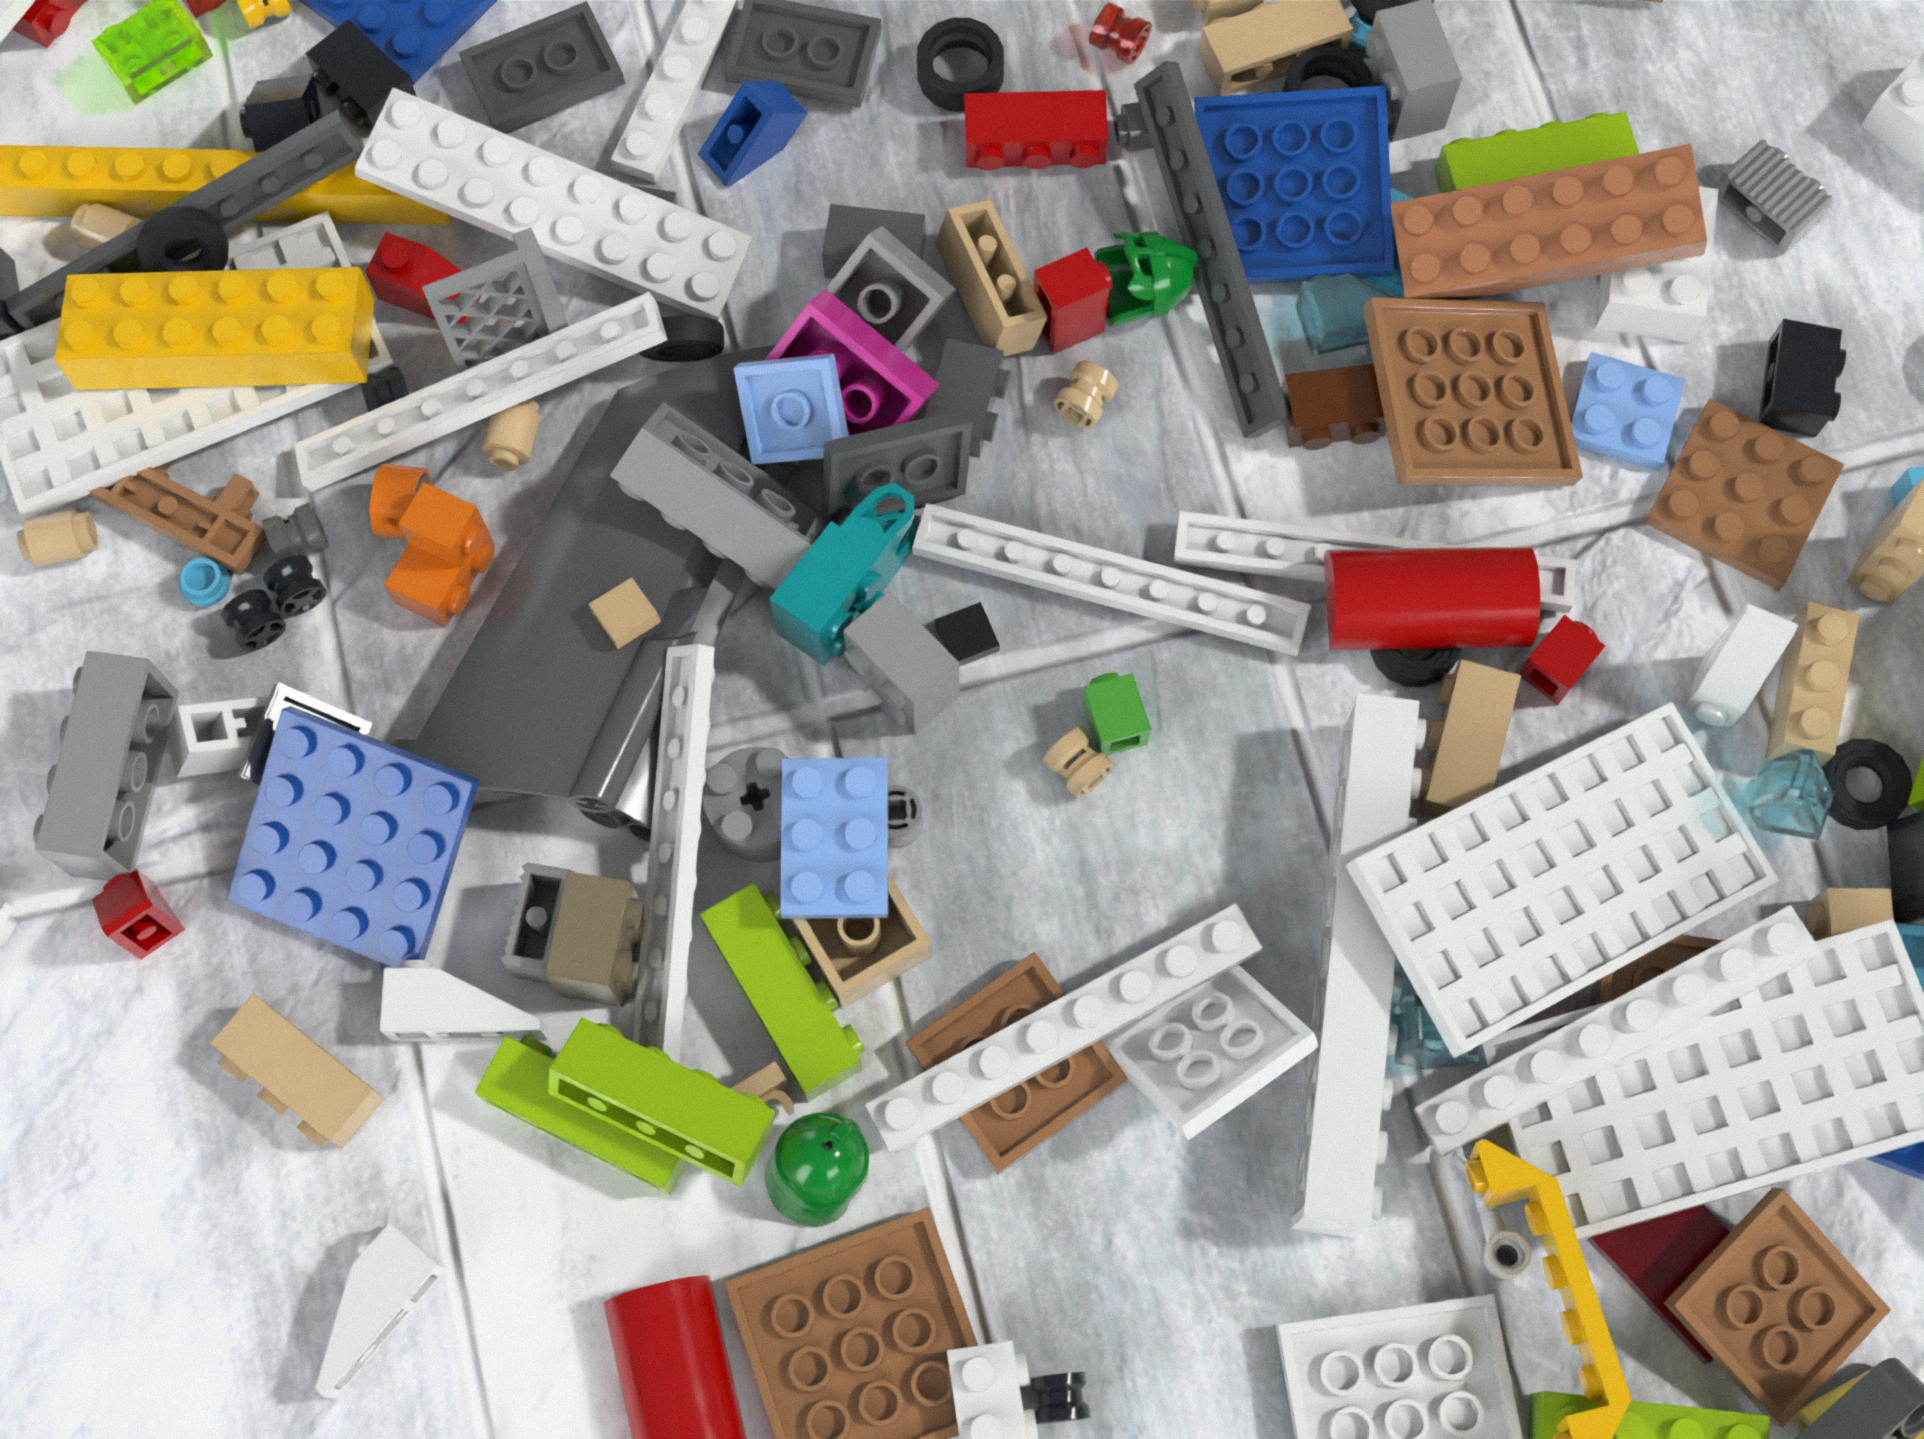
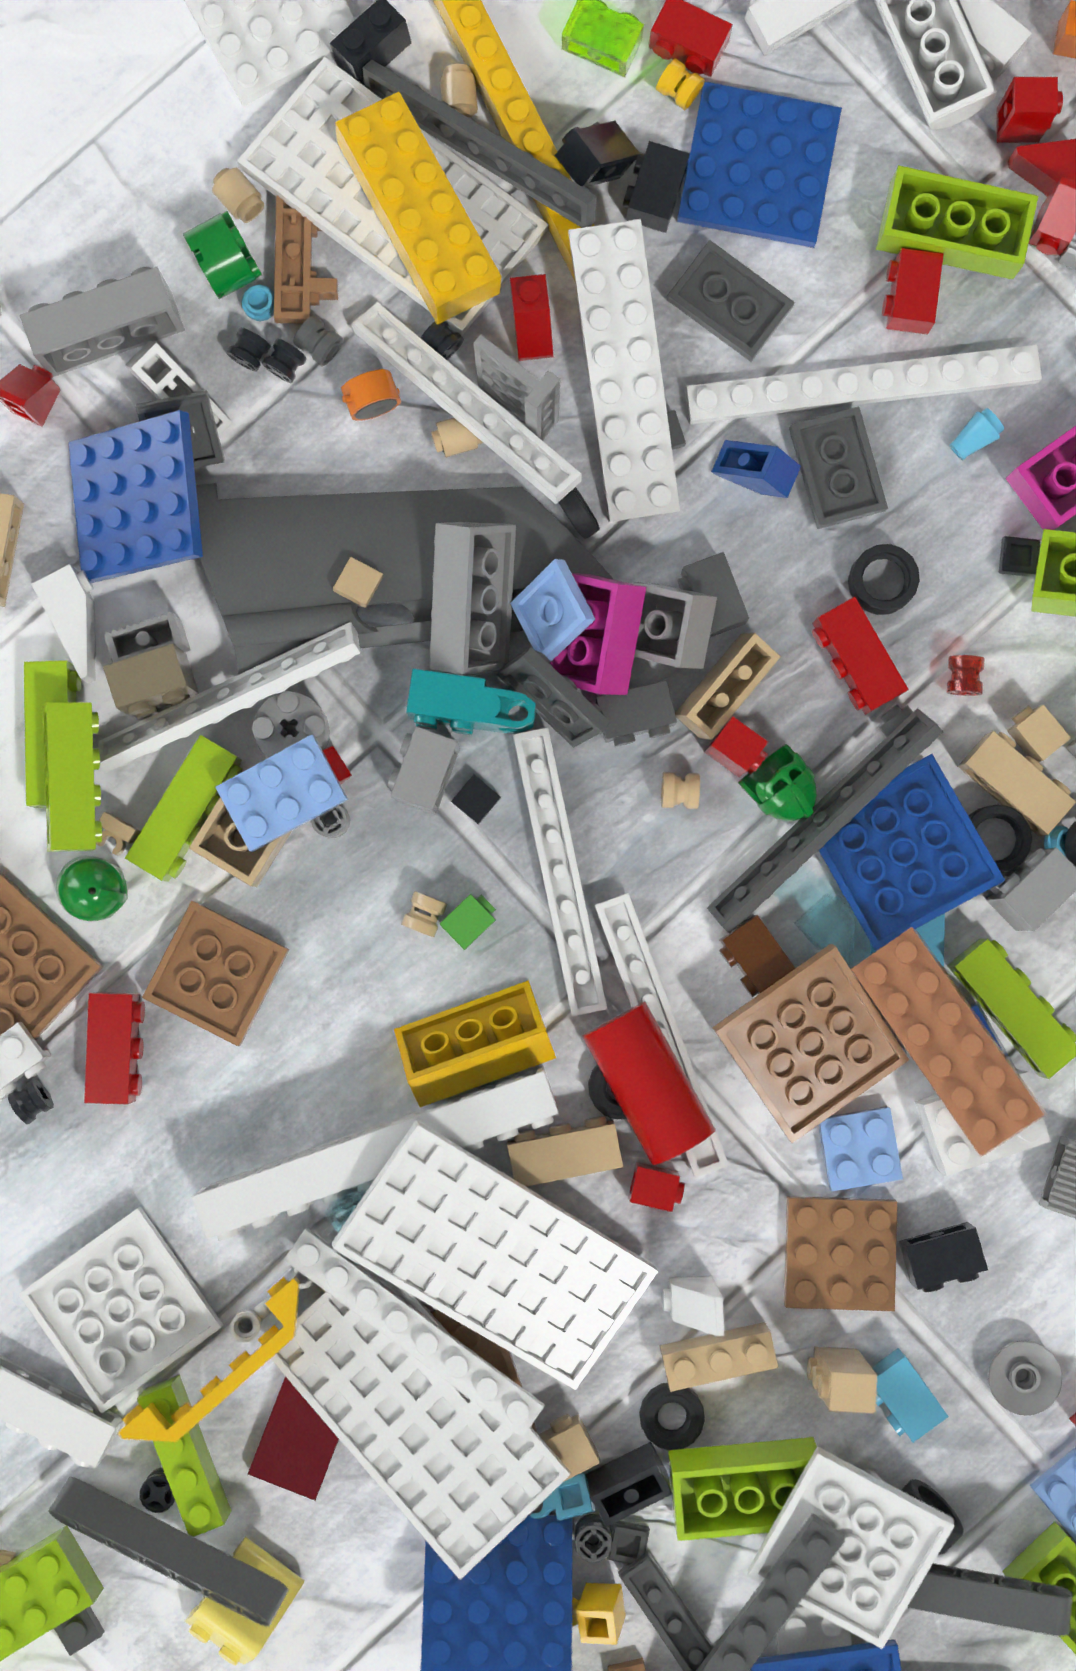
camera: 60 degrees right, 15 degrees up
(120, 584) = (222, 254): none -> green brick
(182, 222) = (470, 142): black tyre -> none
(442, 556) = (346, 441): orange brick -> none
(1046, 1245) = (113, 1048): none -> red brick
(1062, 1028) = (247, 992): white plate -> none
(1210, 1049) = (277, 1086): white plate -> none
(1274, 784) = (473, 1044): none -> yellow slope
(1777, 1306) = (297, 1501): medium nougat plate -> none
(1790, 795) = (630, 1374): clear light blue slope -> none

